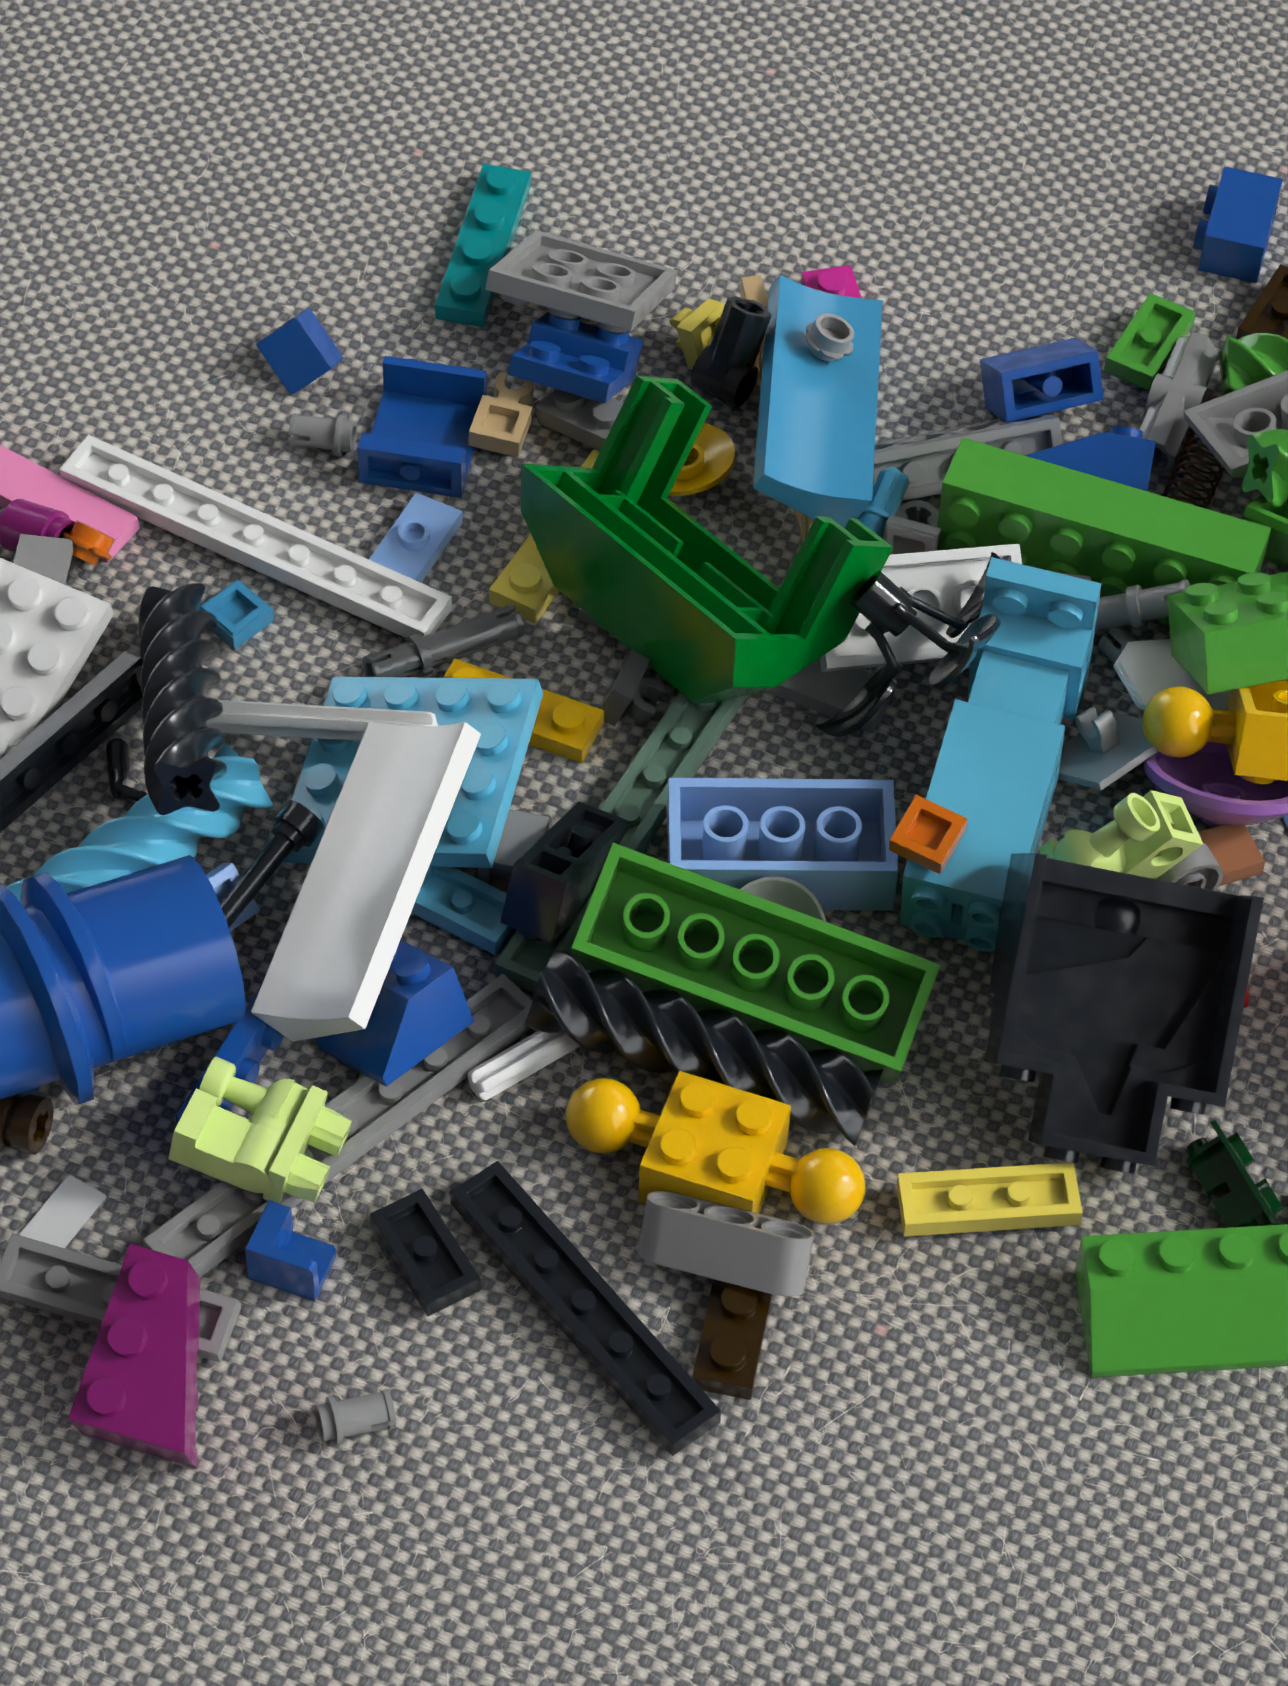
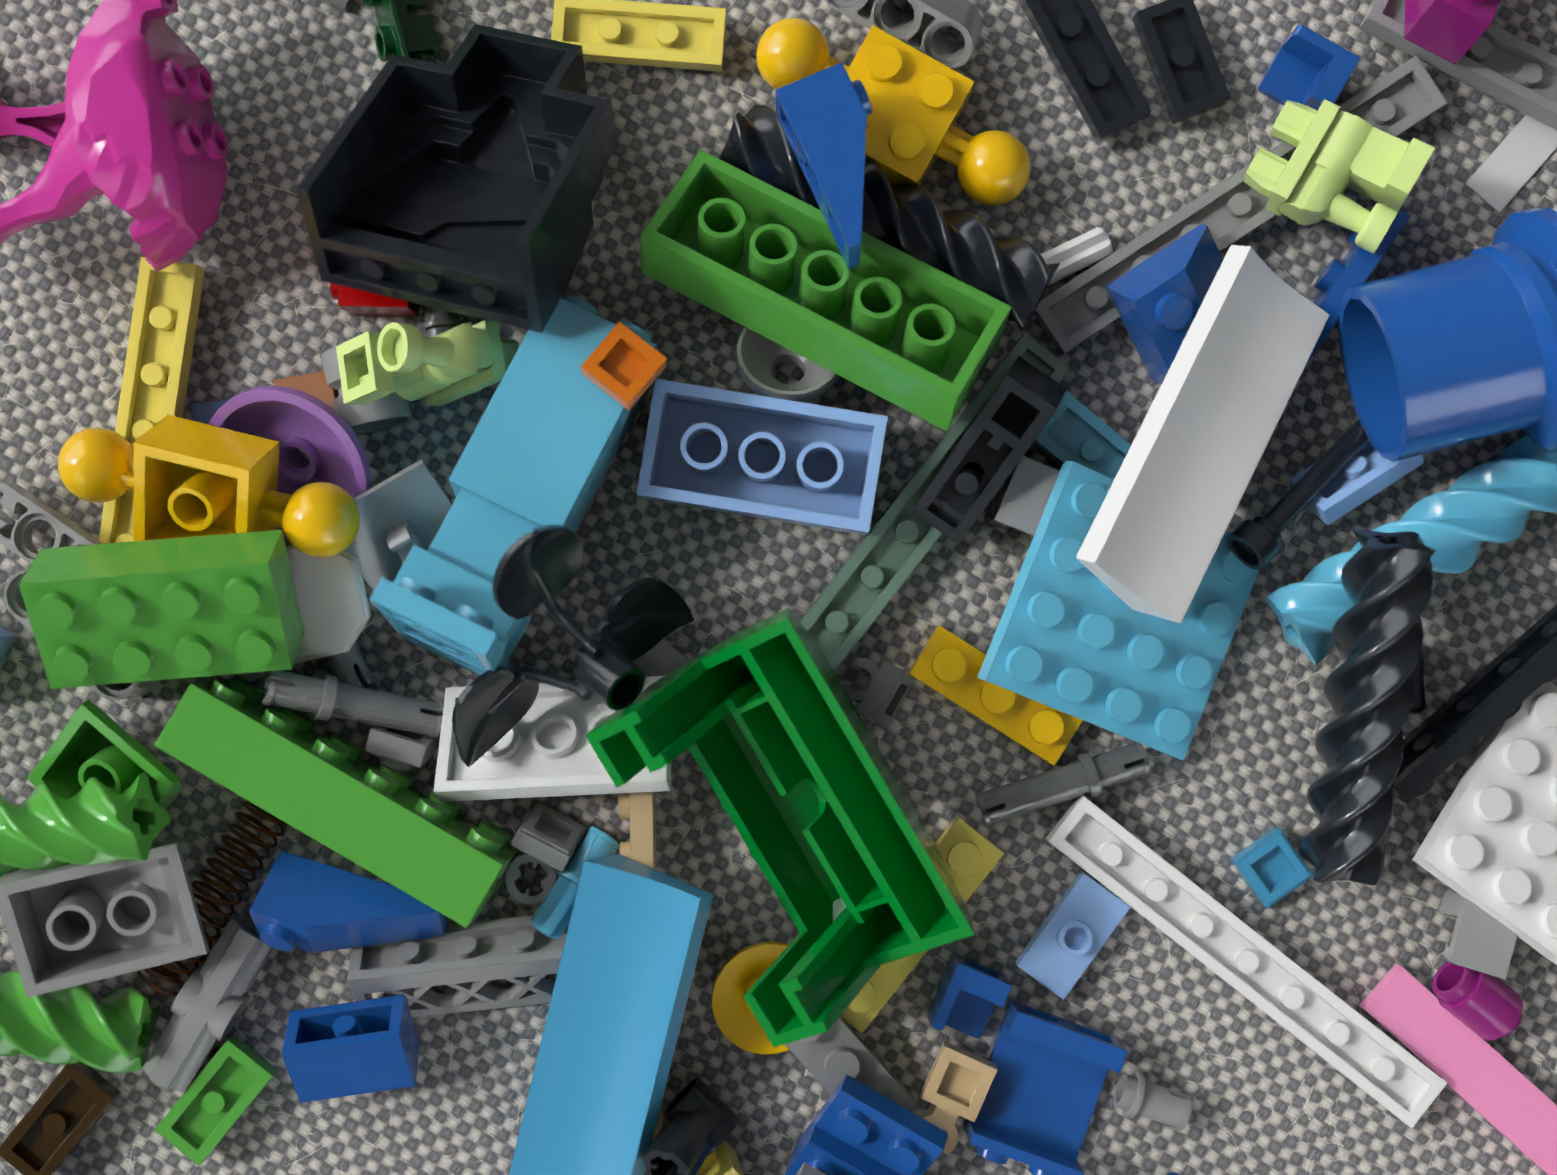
camera: 170 degrees left, 35 degrees up
(89, 543) = (1426, 969): orange plate -> none
(310, 720) = (1211, 678): white axle -> none
(497, 489) = (967, 996): none -> blue panel
(776, 1056) = (827, 132): none -> blue slope
(829, 337) = (570, 1121): light grey plate -> none

